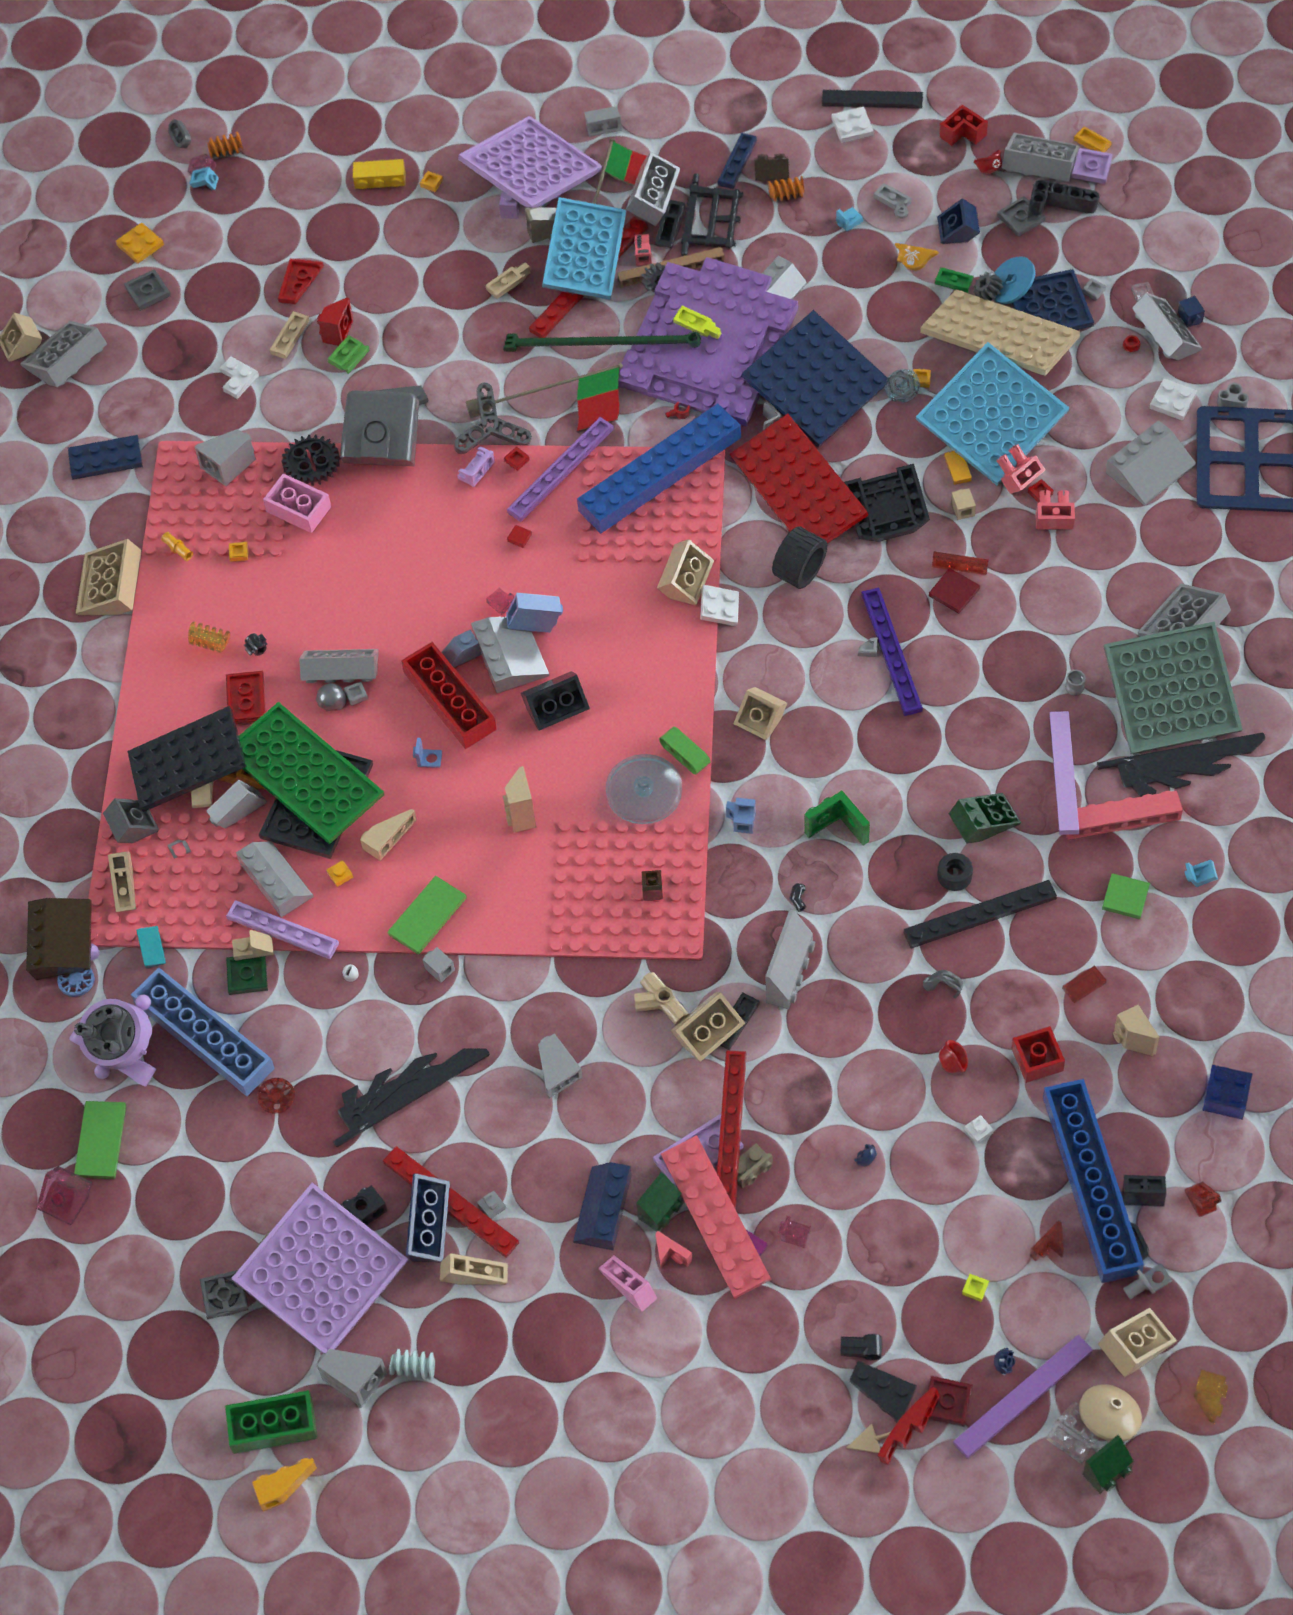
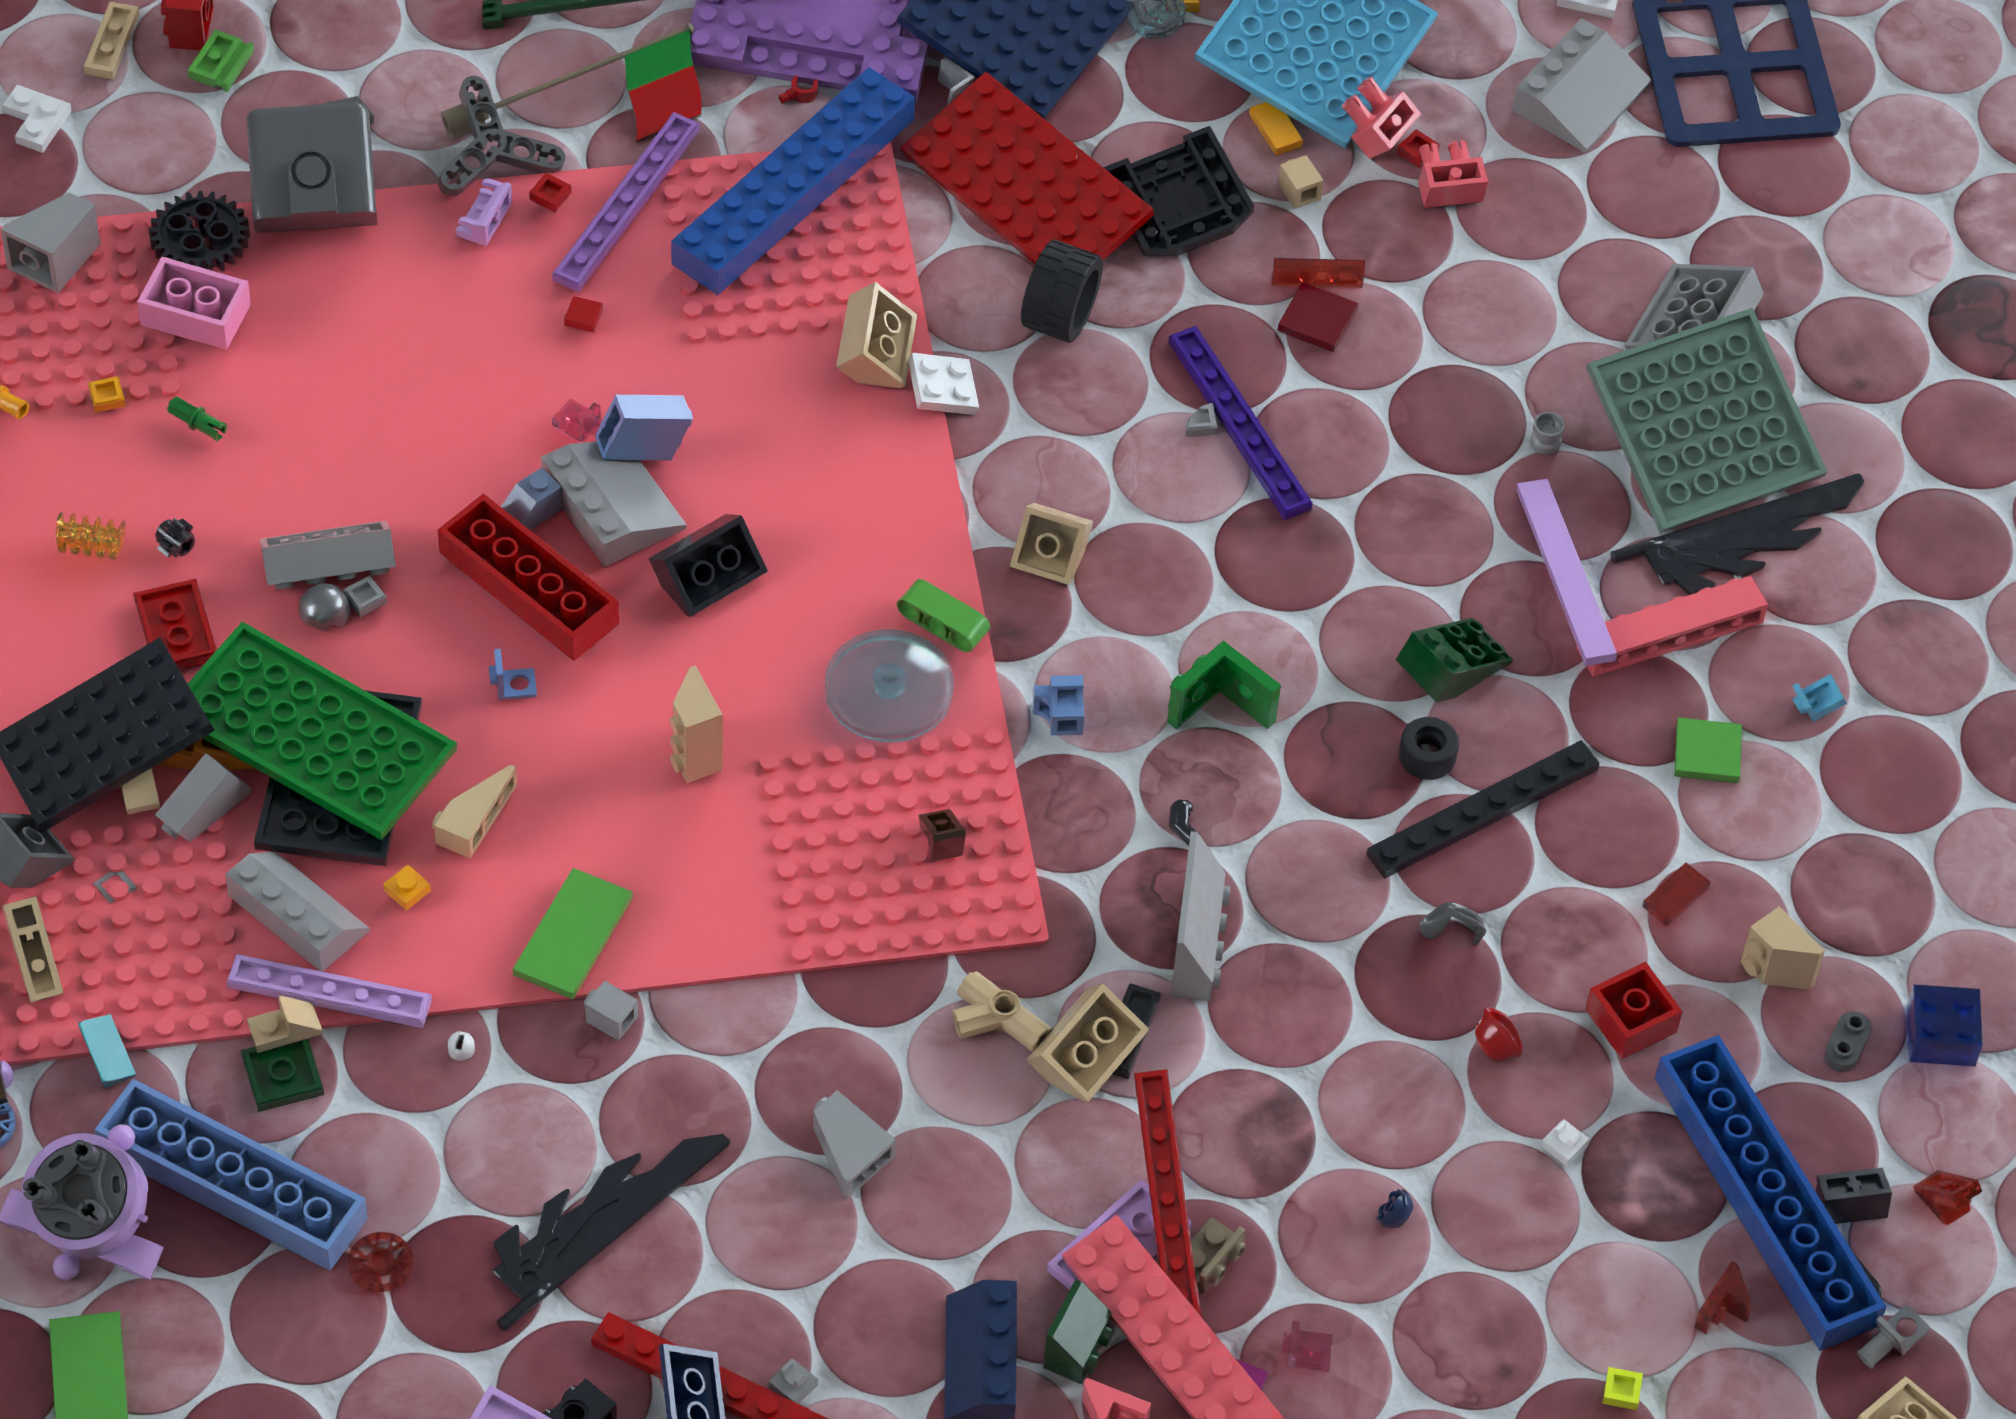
camera: 20 degrees left, 5 degrees down
(284, 573) = (196, 418): none -> green axle
(1167, 1091) = (1849, 1039): none -> dark grey plate

